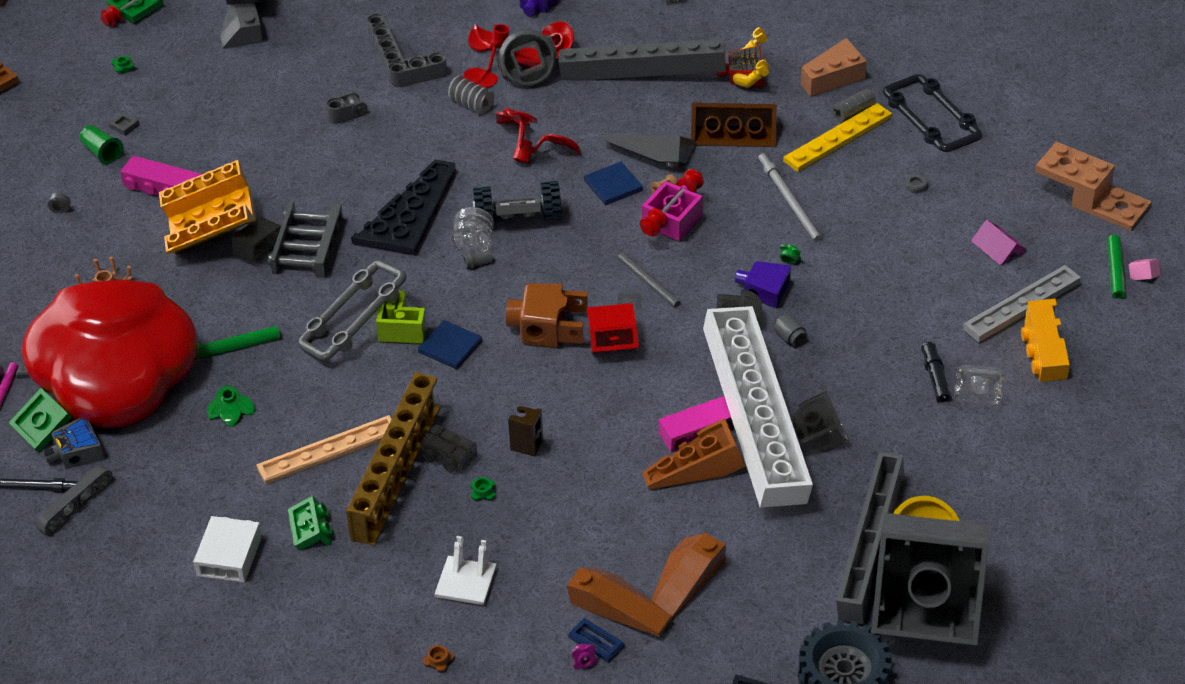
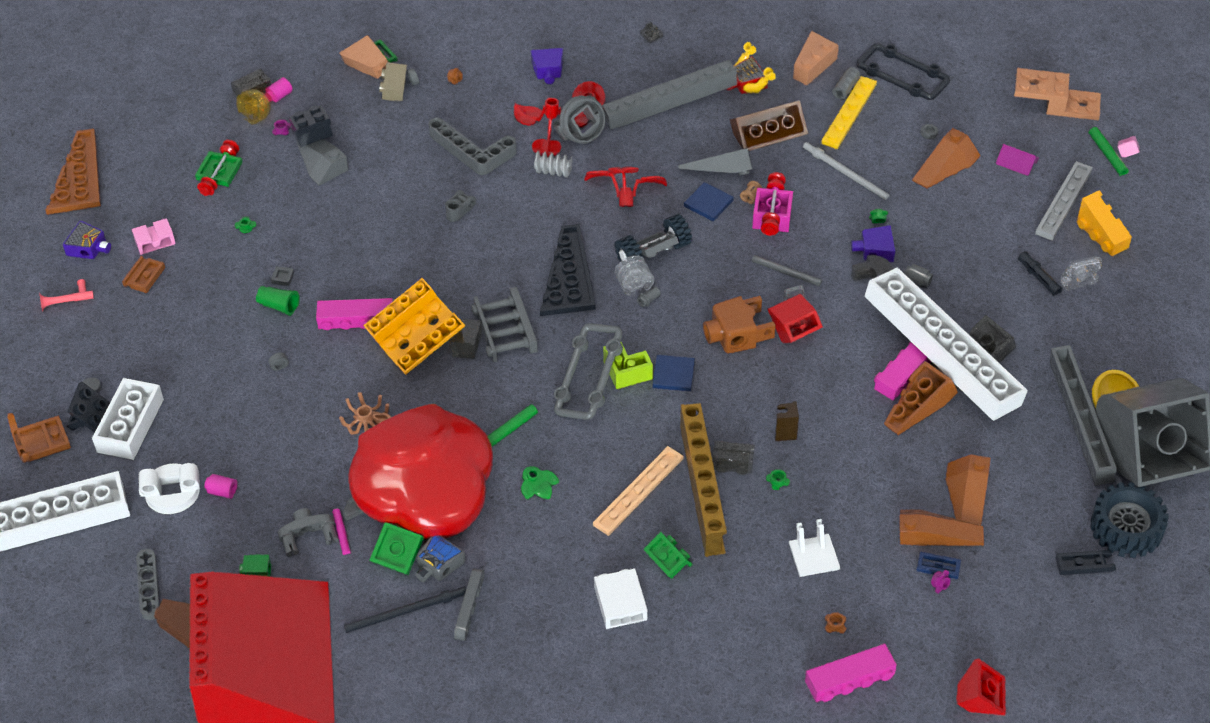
camera: 25 degrees left, 5 degrees up
(26, 49) = (153, 237): none -> bright pink brick
(918, 215) = (948, 158): none -> dark orange wedge

